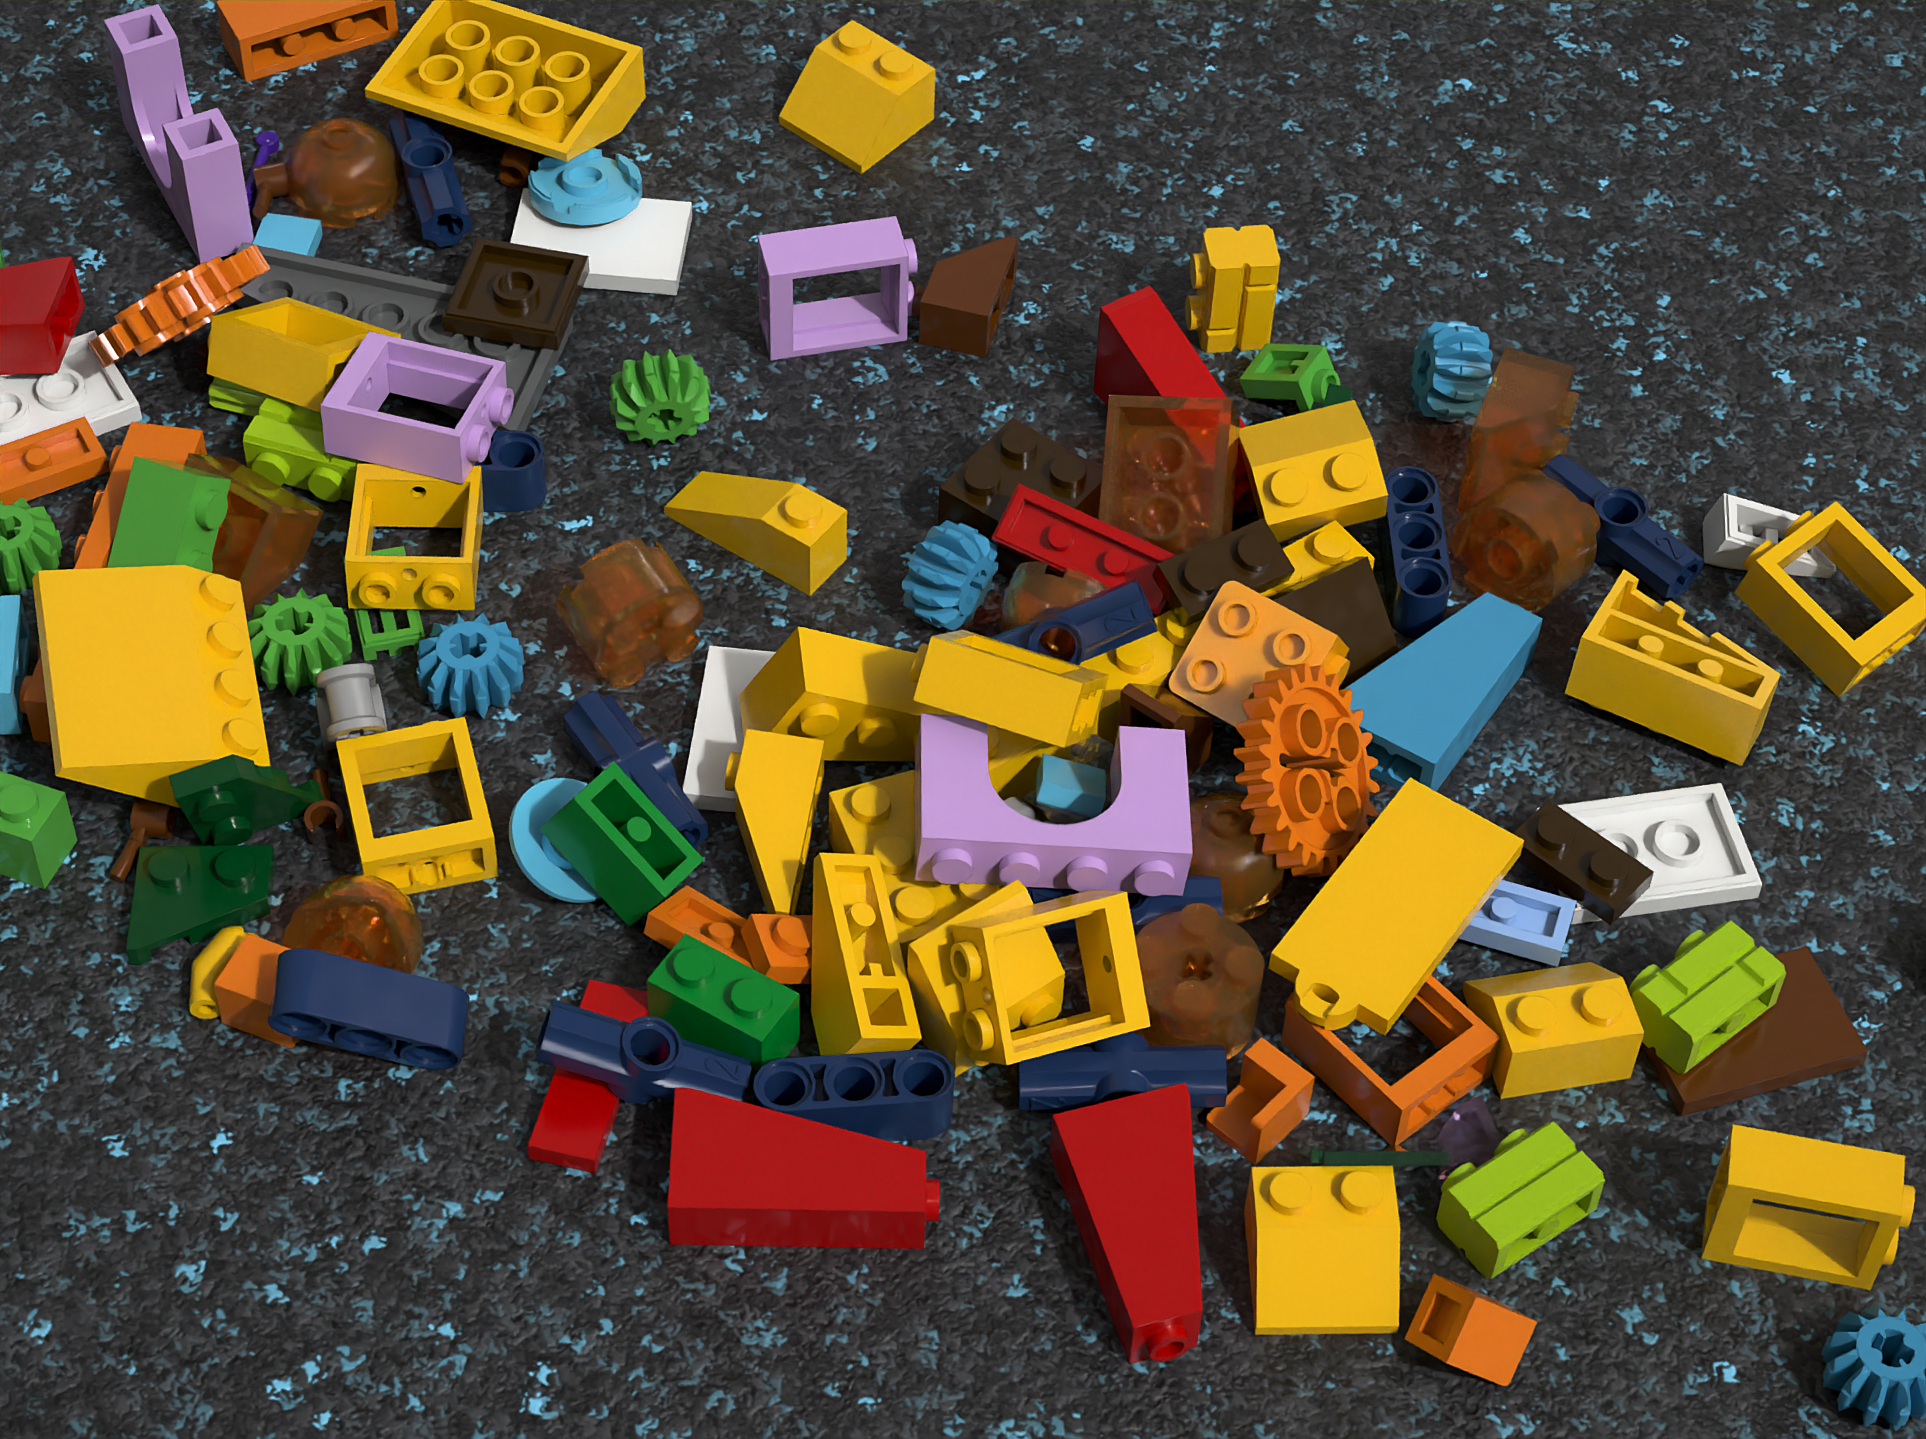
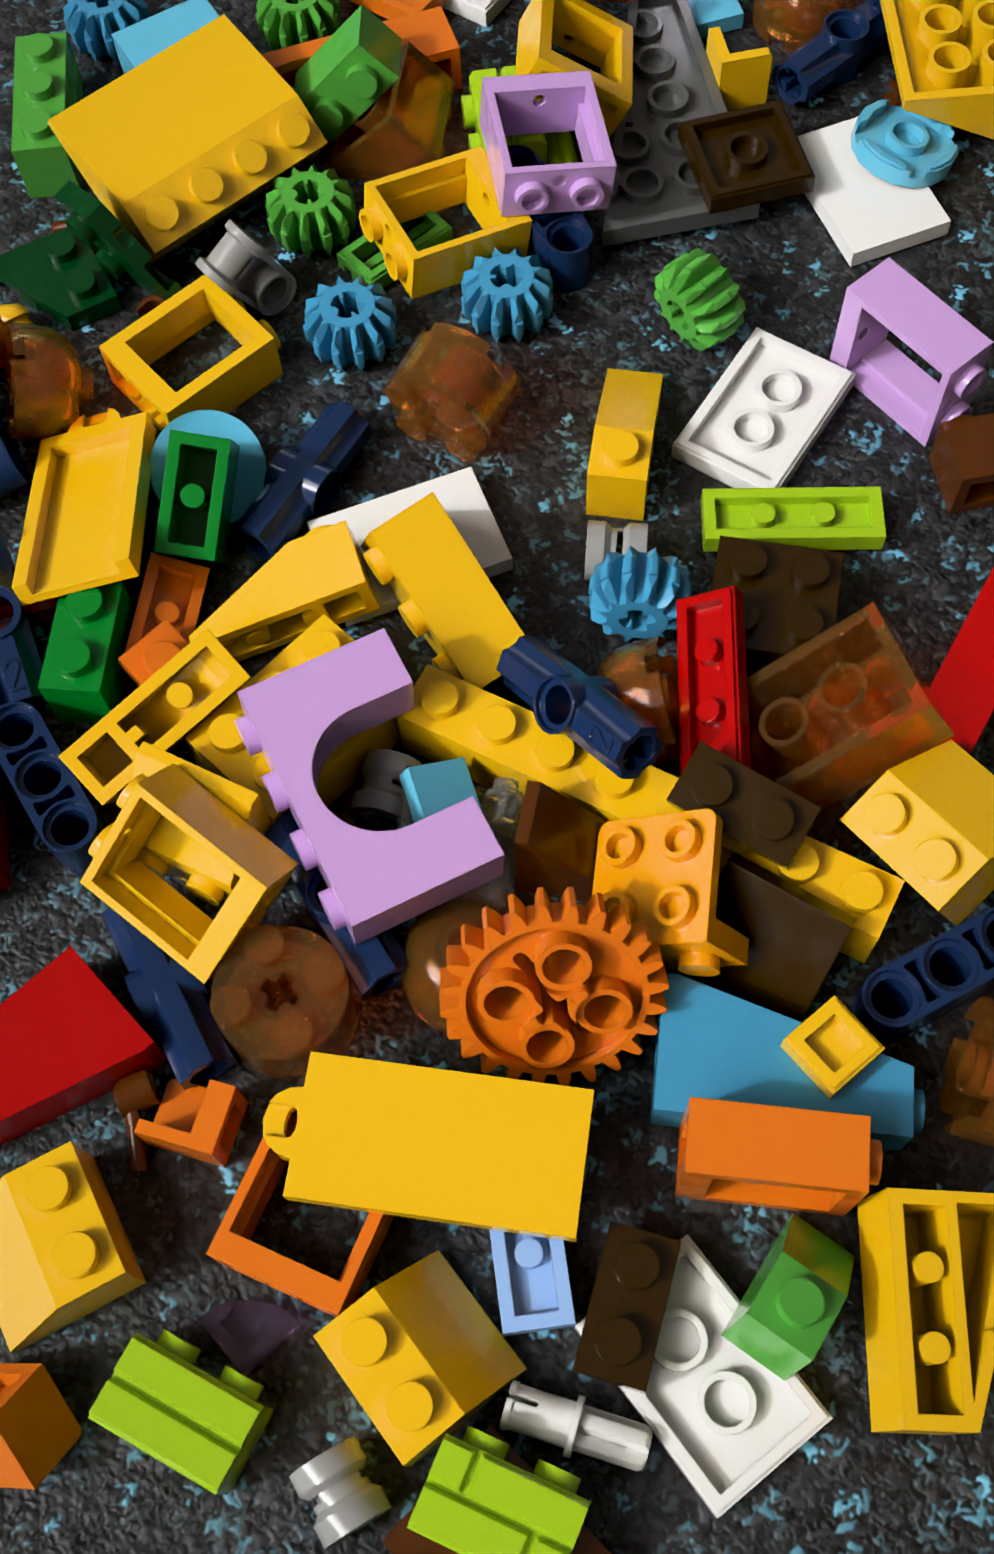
camera: 70 degrees right, 15 degrees up
(403, 257) = (739, 75): none -> yellow panel
(530, 535) = (507, 294): none -> dark azure gear
(559, 938) = (86, 507): none -> yellow piece
(800, 422) = (763, 414): none -> white tile
(876, 586) = (604, 539): none -> light grey wheel
(929, 452) = (795, 516): none -> lime plate
(1008, 687) = (412, 709): yellow window -> none
(1212, 1152) = (132, 1097): none -> reddish brown hand
(1378, 1155) = (160, 1253): clear green piece -> none
(1448, 627) = (832, 1047): none -> yellow tile
(1513, 710) = (775, 1156): none -> orange window
(1629, 756) = (792, 1299): none -> bright green slope
(1635, 1112) = (342, 1494): none -> light grey wheel
(1657, 939) = (576, 1427): none -> white axle

